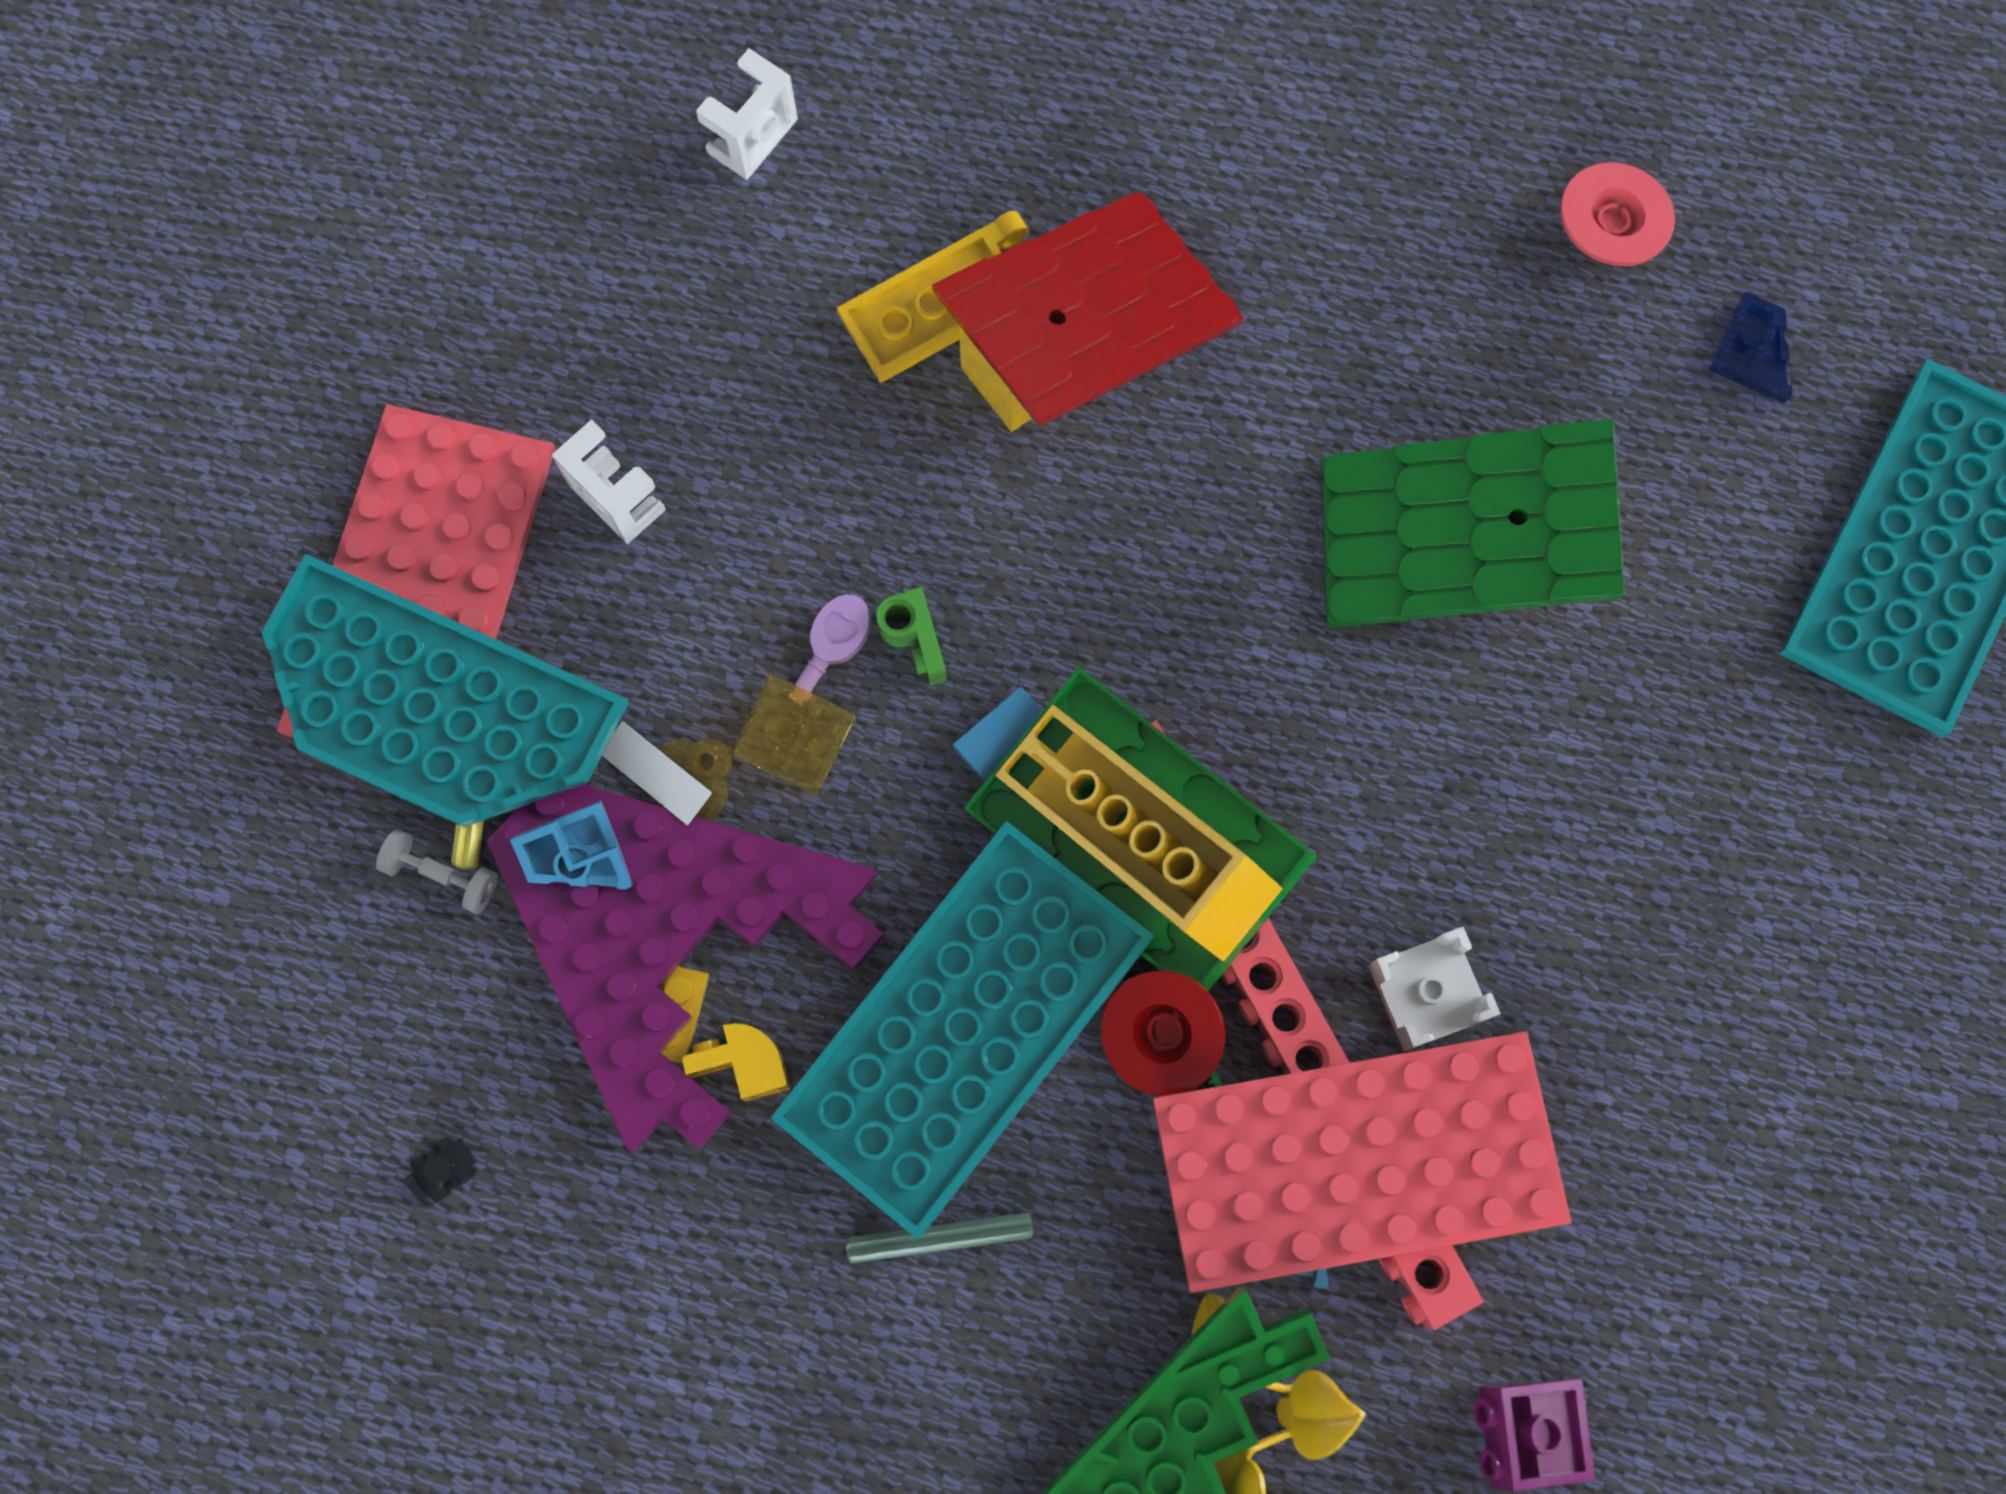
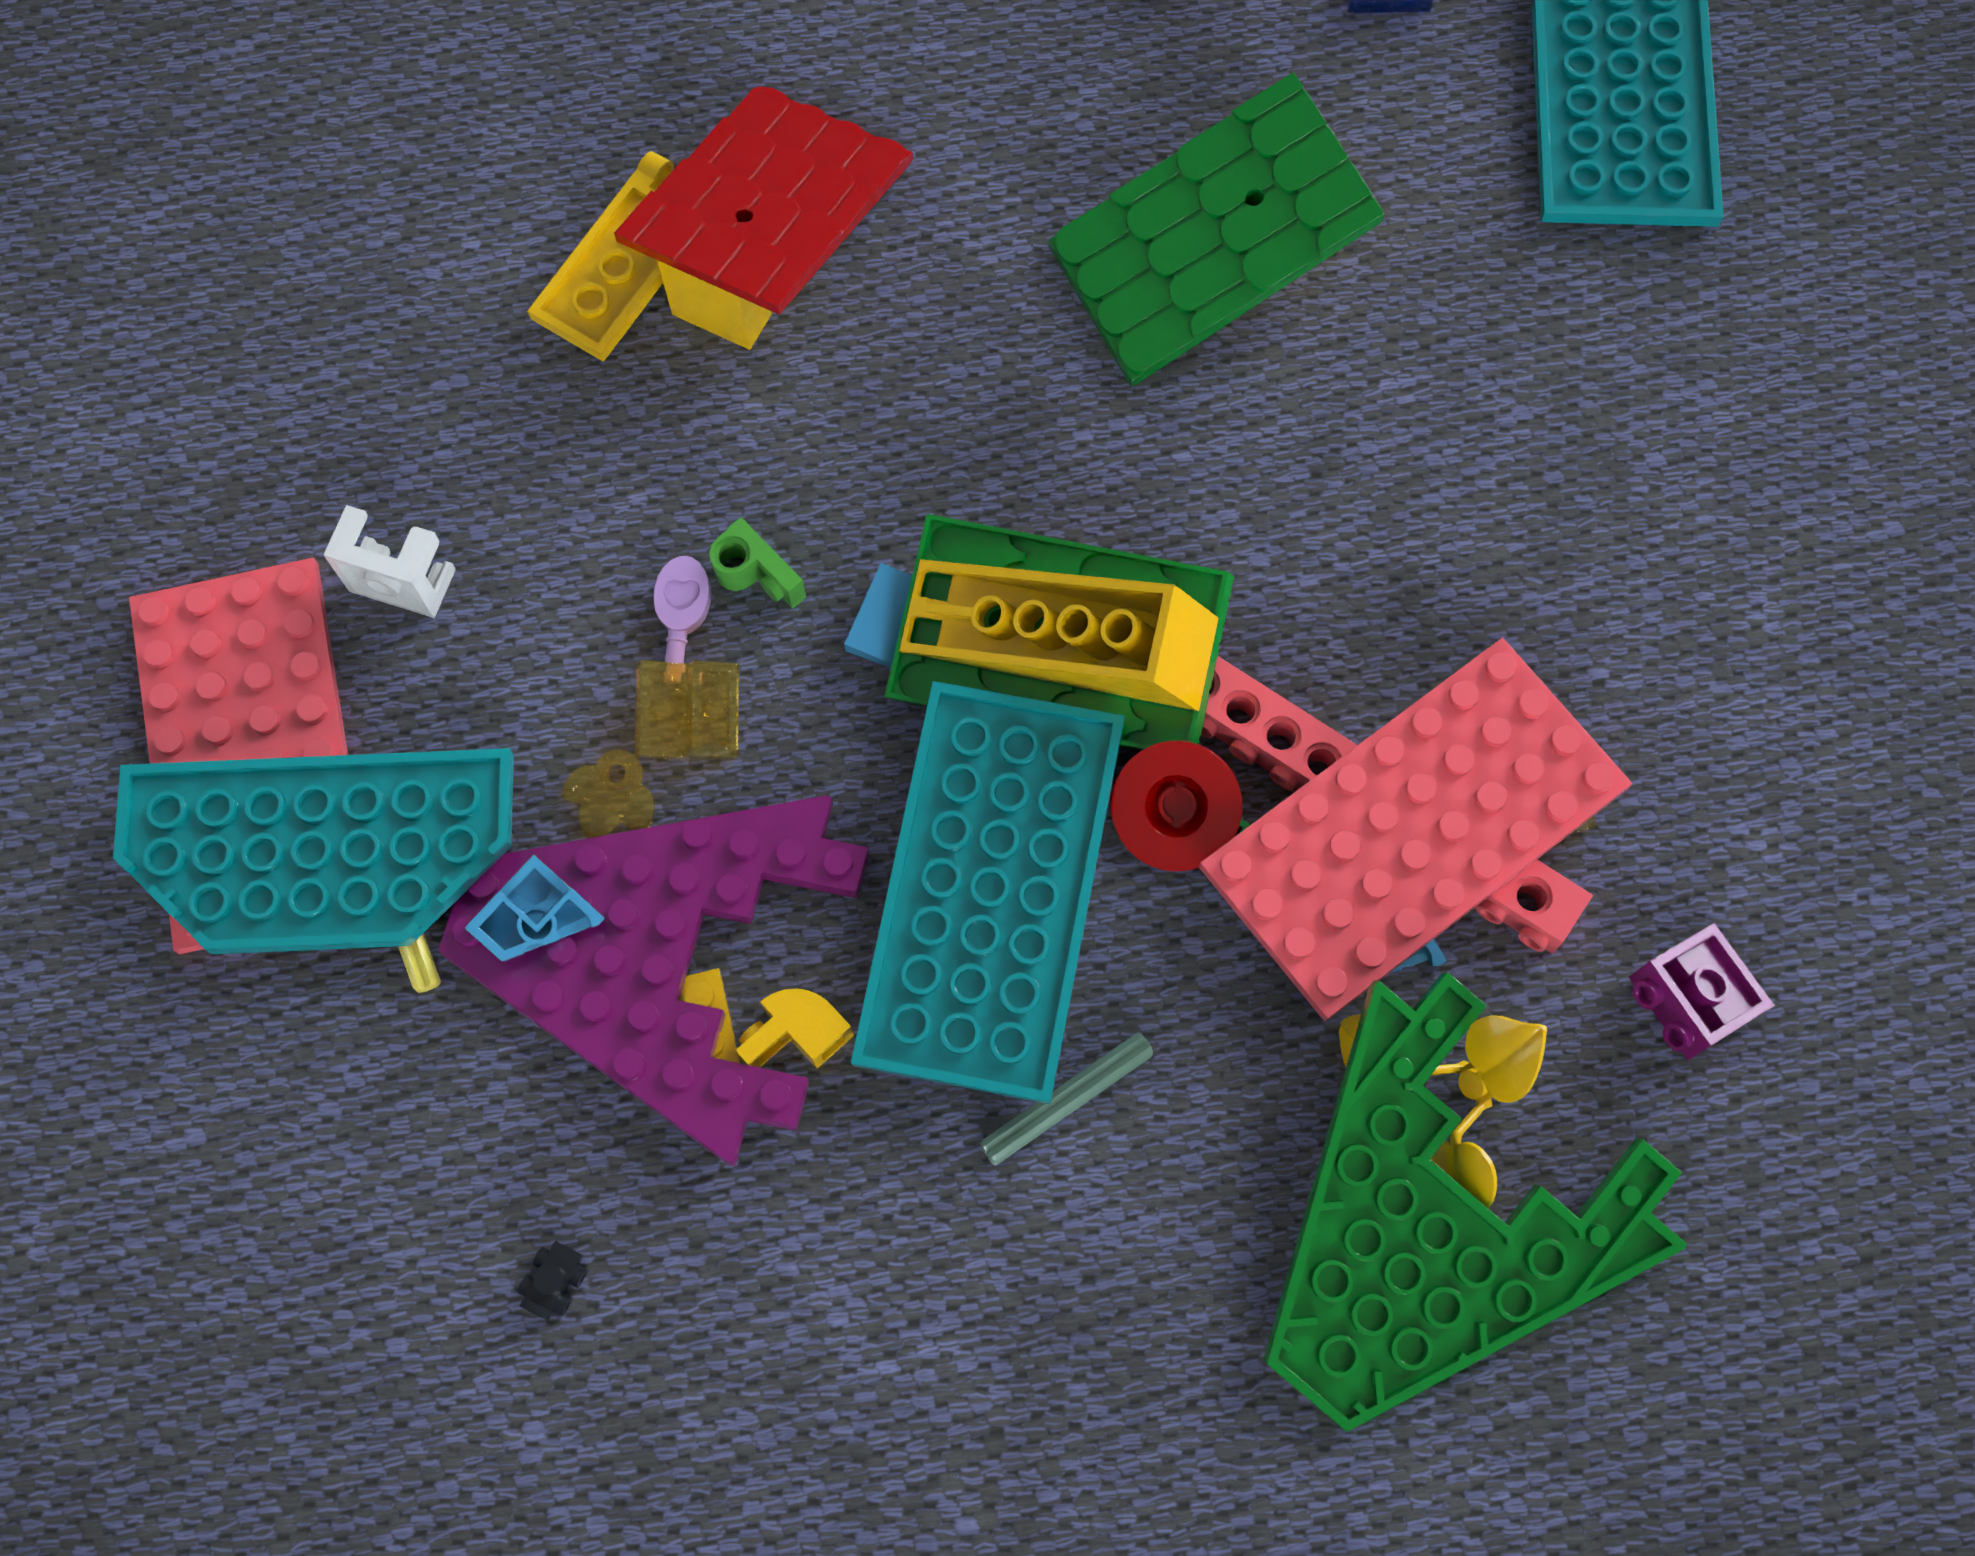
camera: 25 degrees left, 5 degrees down
(396, 852) = (352, 1002): light grey wheel -> none
(656, 773) = (573, 809): white sticker -> none
(759, 122) = (367, 179): white panel -> none
(1431, 990) = (1397, 651): white panel -> none

